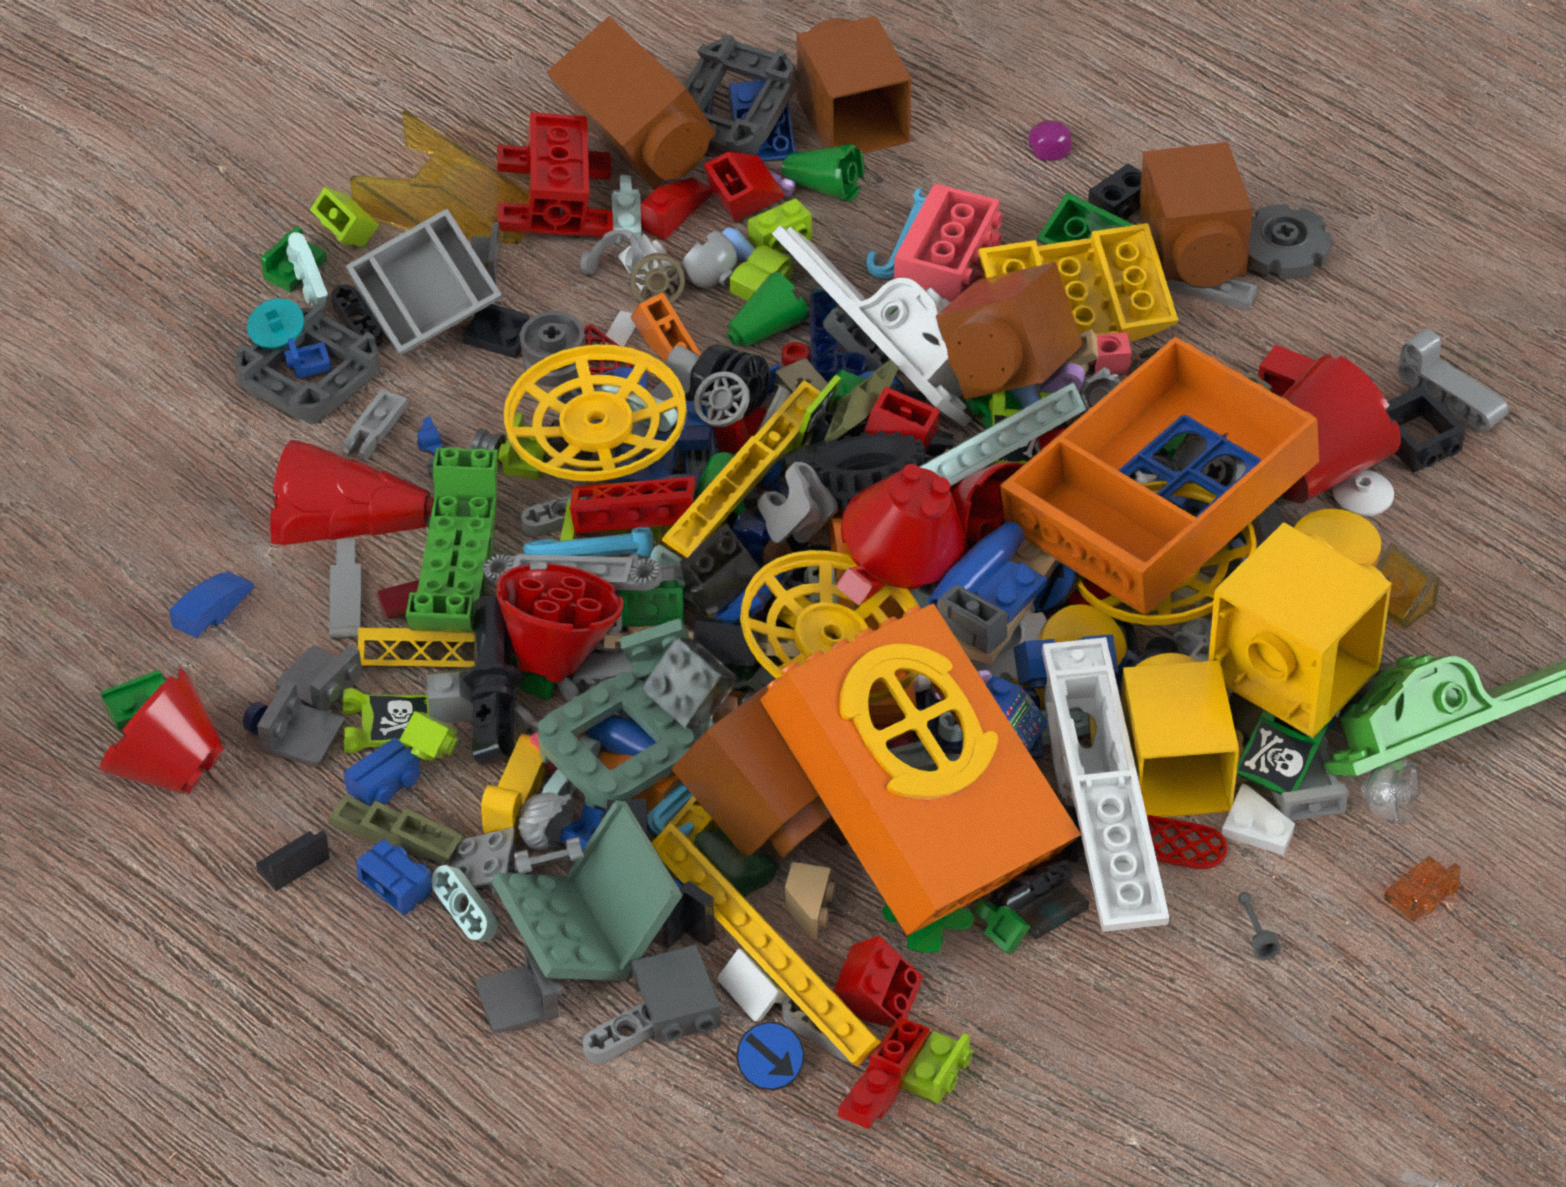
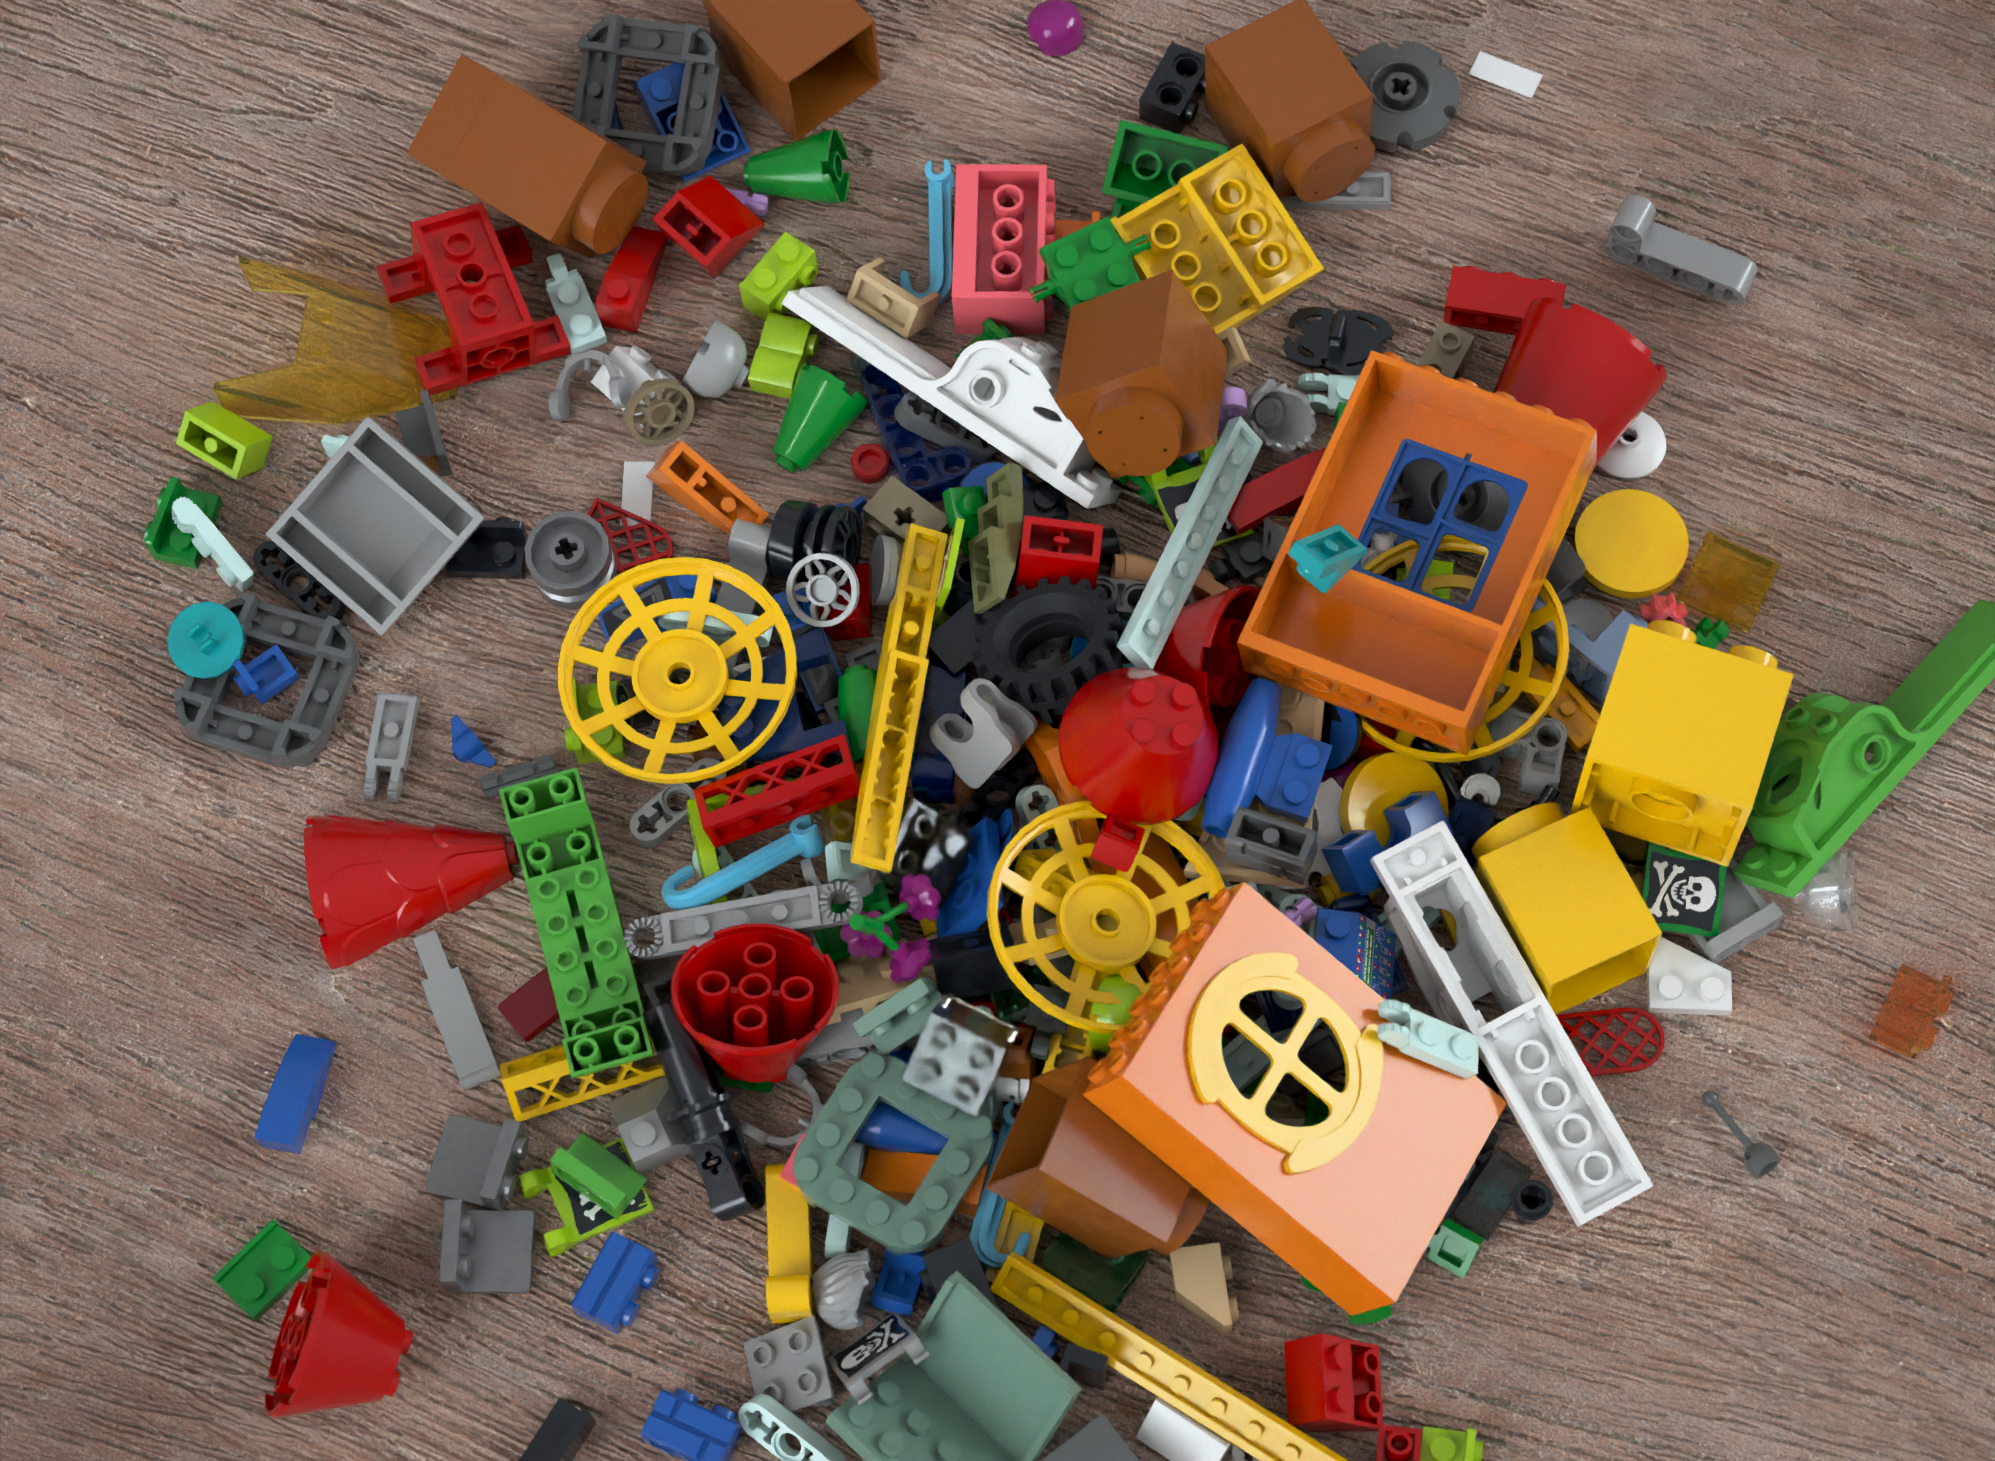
camera: 15 degrees left, 20 degrees up
(253, 716) = (426, 1251): dark blue tile -> none
(393, 702) = (598, 1175): none -> bright green panel
(407, 829) = (664, 1358): olive slope -> none
(429, 737) = (658, 1219): lime brick -> none
(485, 440) = (546, 734): dark grey wheel -> none
(659, 602) = (868, 934): none -> magenta plant
(741, 244) = (737, 318): light blue cone -> none
(854, 261) = (889, 301): none -> tan panel
(999, 256) = (1088, 264): none -> green plate
(1033, 760) = (1429, 1039): none -> light aqua hinge
(1075, 911) = (1532, 1193): none -> black cone
(1084, 443) = (1326, 556): none -> teal slope
(1113, 353) = (1264, 328): coral brick -> none
(1372, 253) = (1505, 74): none -> white sticker
(1446, 444) = (1655, 291): black window -> none

